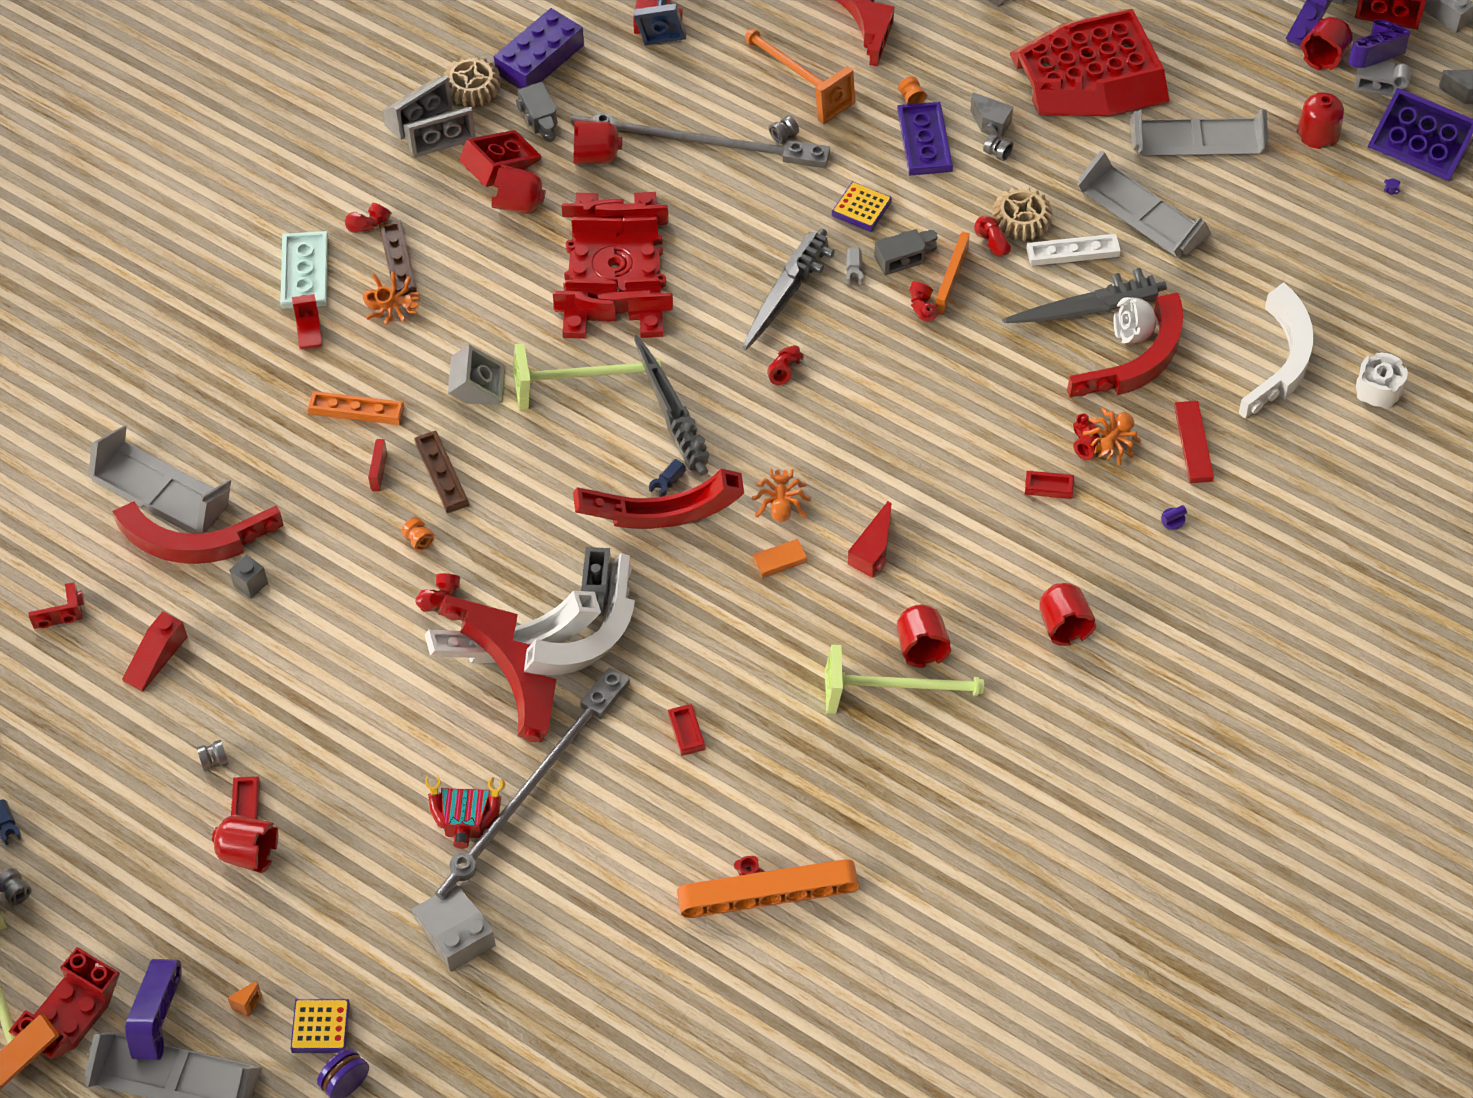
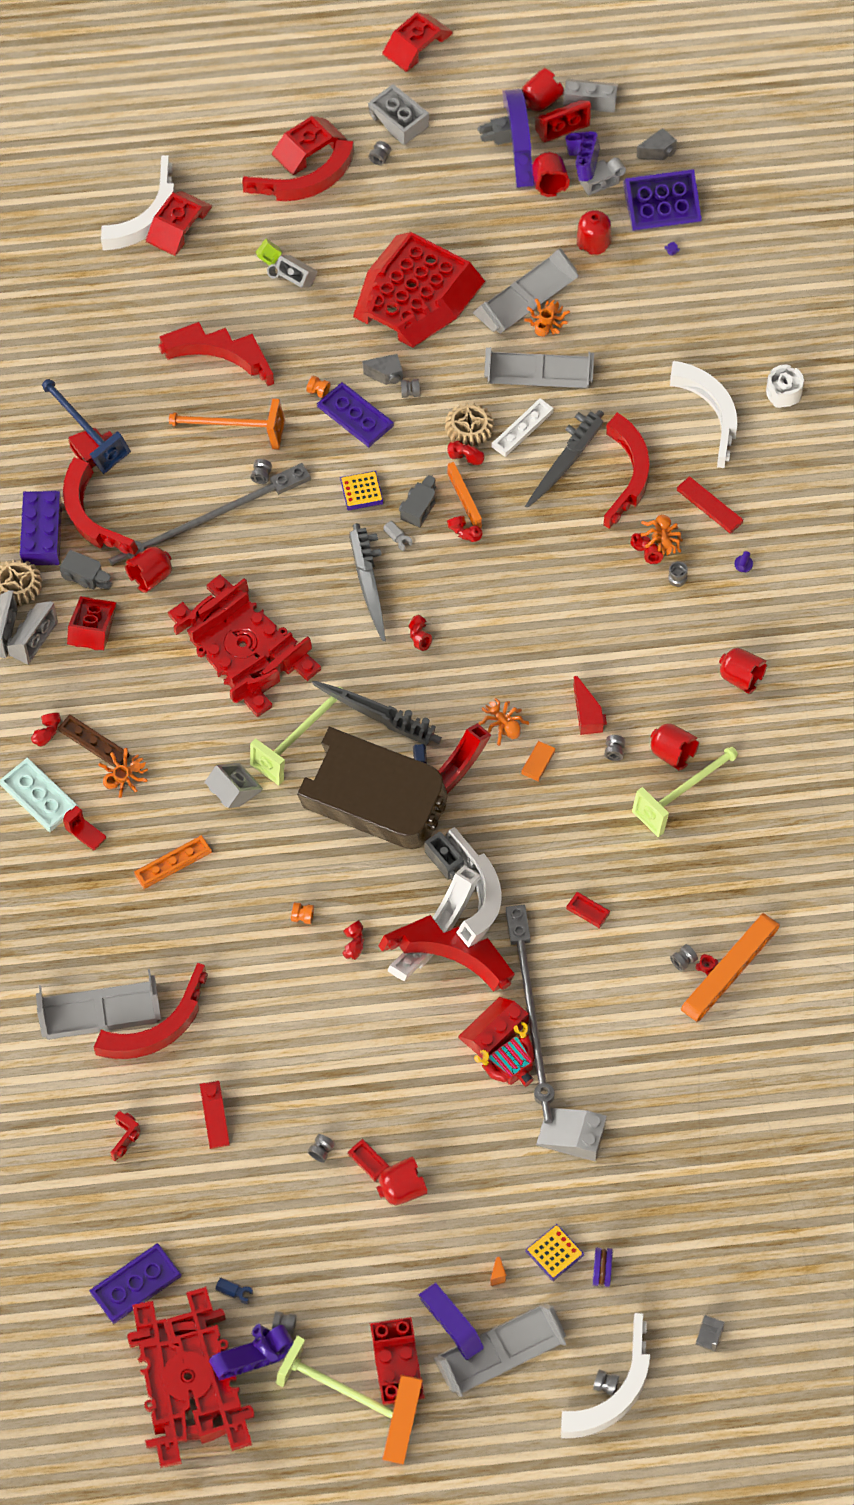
camera: 40 degrees left, 5 degrees up
(248, 576) = (224, 1021): dark grey brick -> none
(377, 465) = (230, 888): red tile -> none
(441, 471) = (272, 862): reddish brown tile -> none
(475, 767) = (494, 1026): none -> red slope
(517, 190) = (131, 638): red cylinder -> none
(587, 51) = (74, 488): none -> red arch
(588, 468) = (375, 790): none -> dark brown piece
(729, 843) = (683, 957): none -> flat silver wheel
(864, 597) = (614, 747): none -> flat silver wheel
(1049, 484) = (651, 595): red tile -> none
(1093, 481) = (677, 574): none -> flat silver wheel
(1134, 321) = (606, 450): white cylinder -> none
(1196, 167) = (546, 318): none -> orange animal

